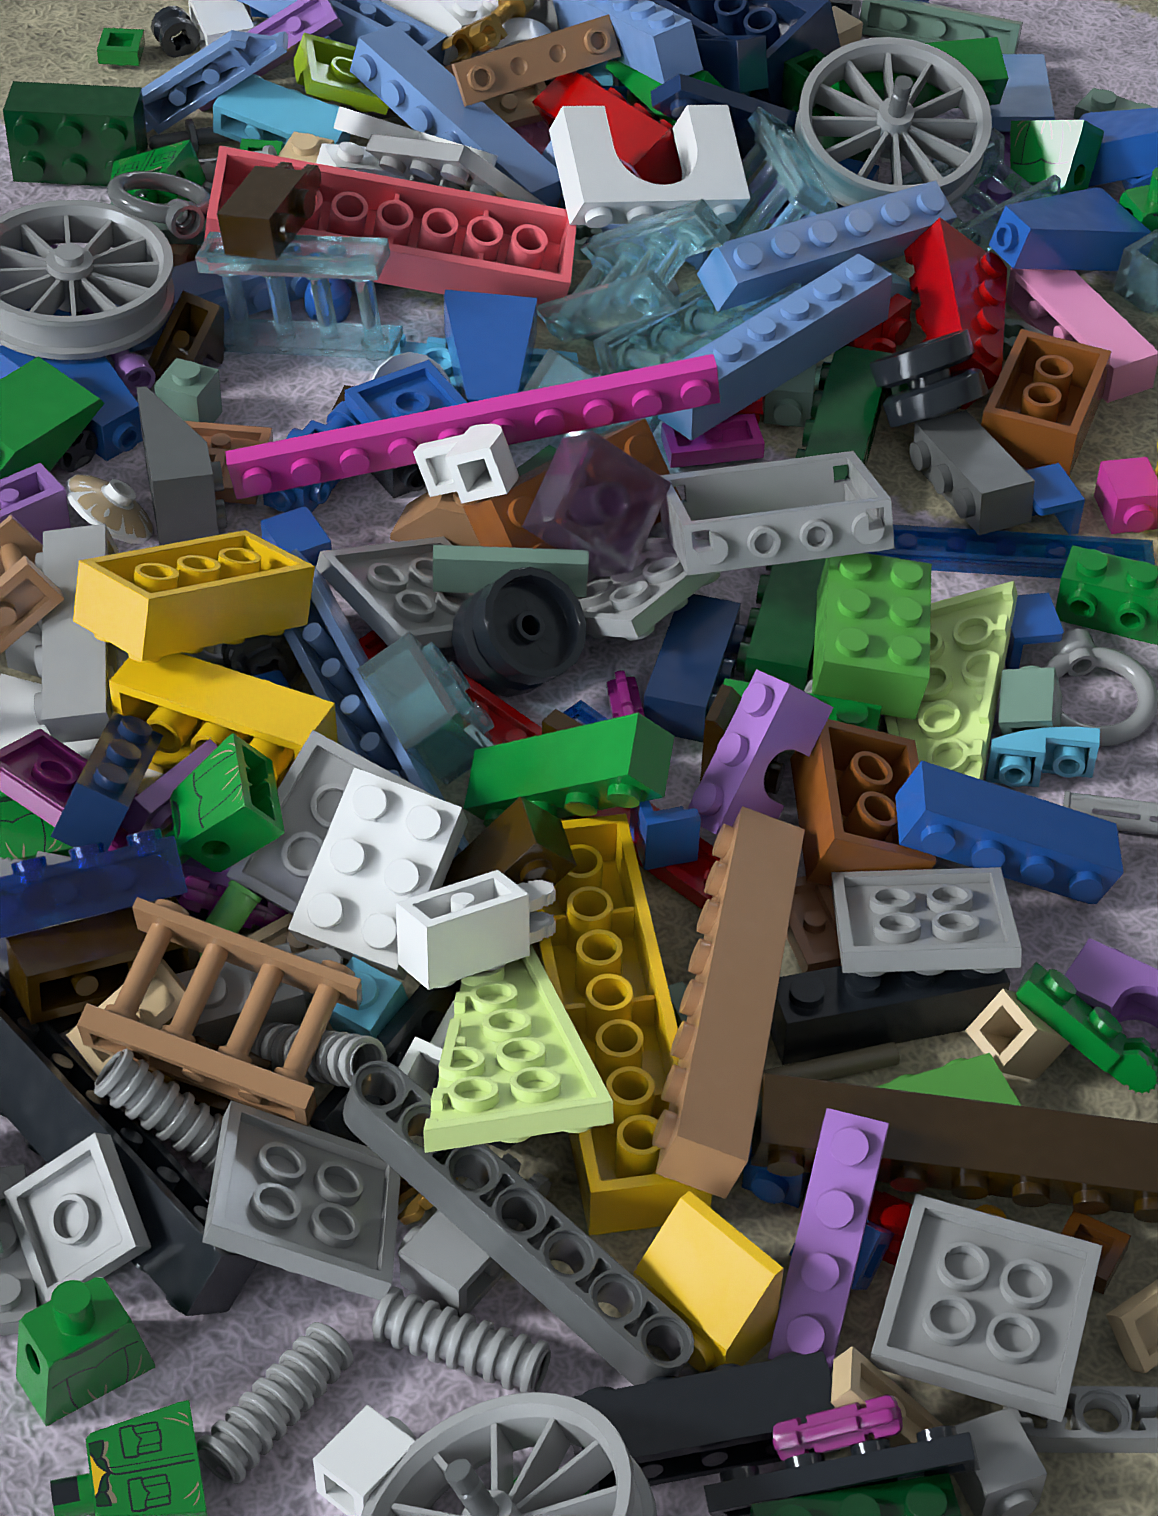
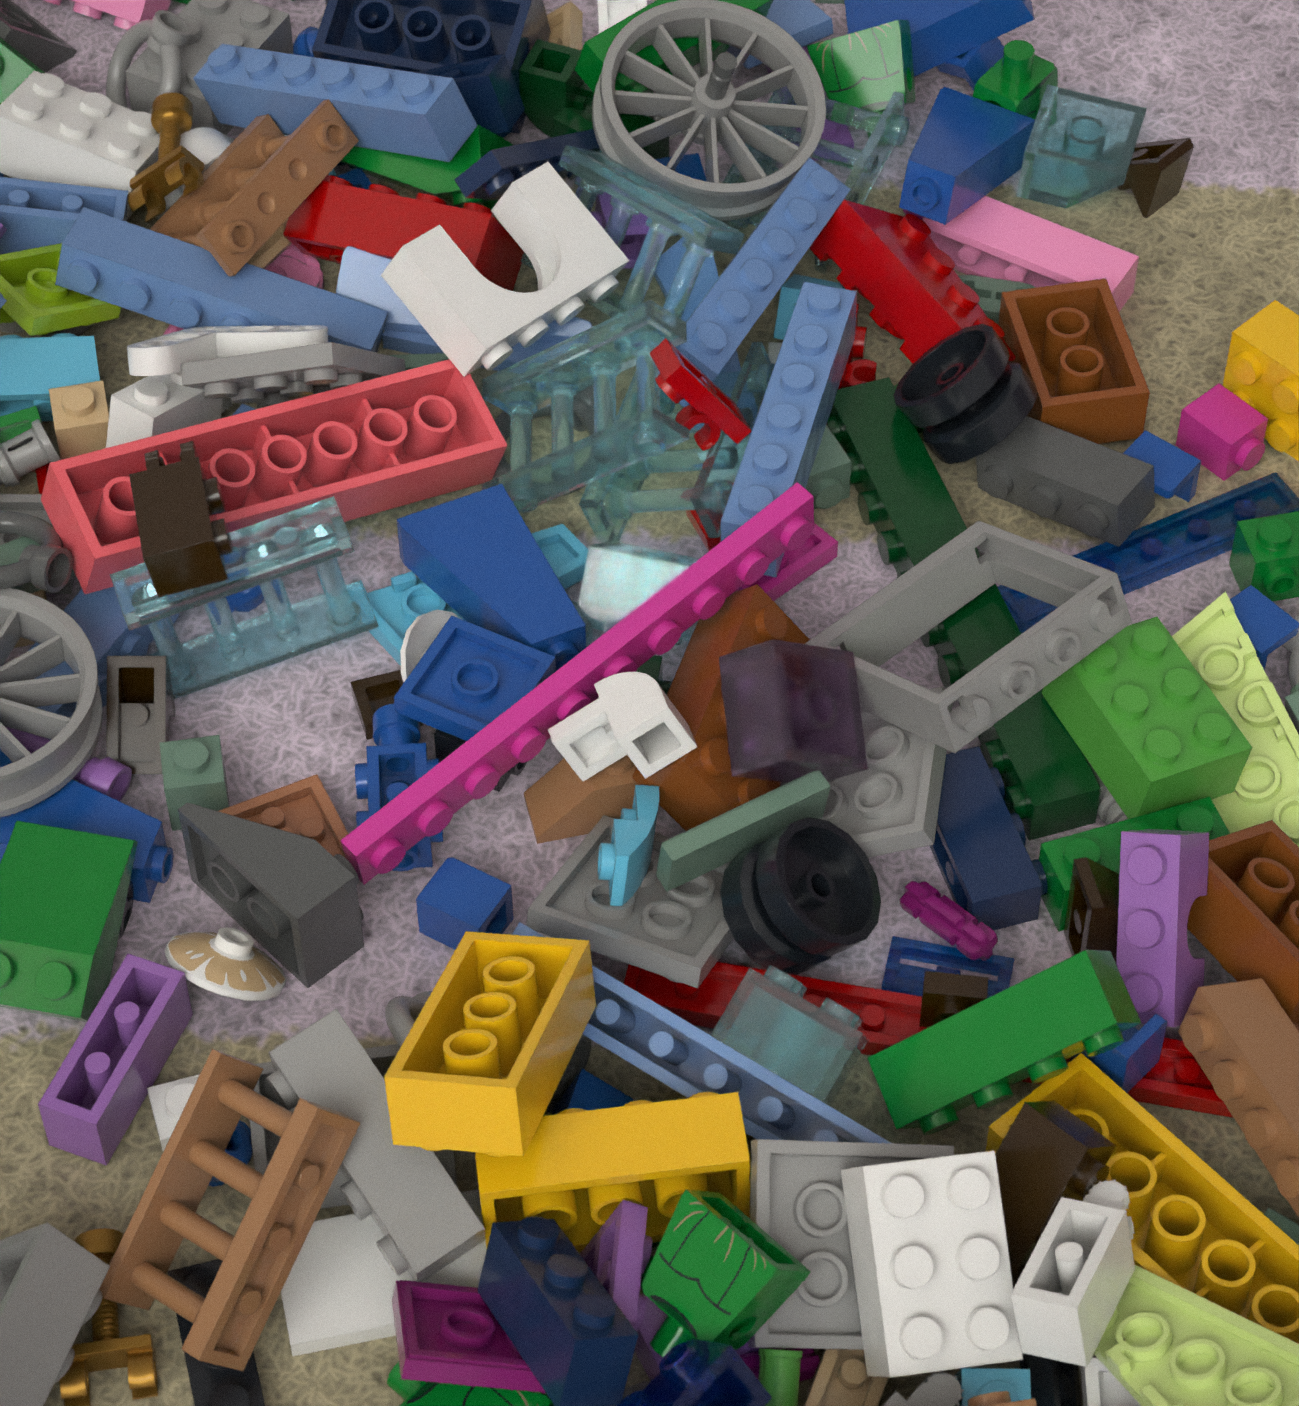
camera: 30 degrees left, 5 degrees up
(411, 549) = (629, 854): none -> medium azure slope
(710, 290) = (708, 403): none -> red plate

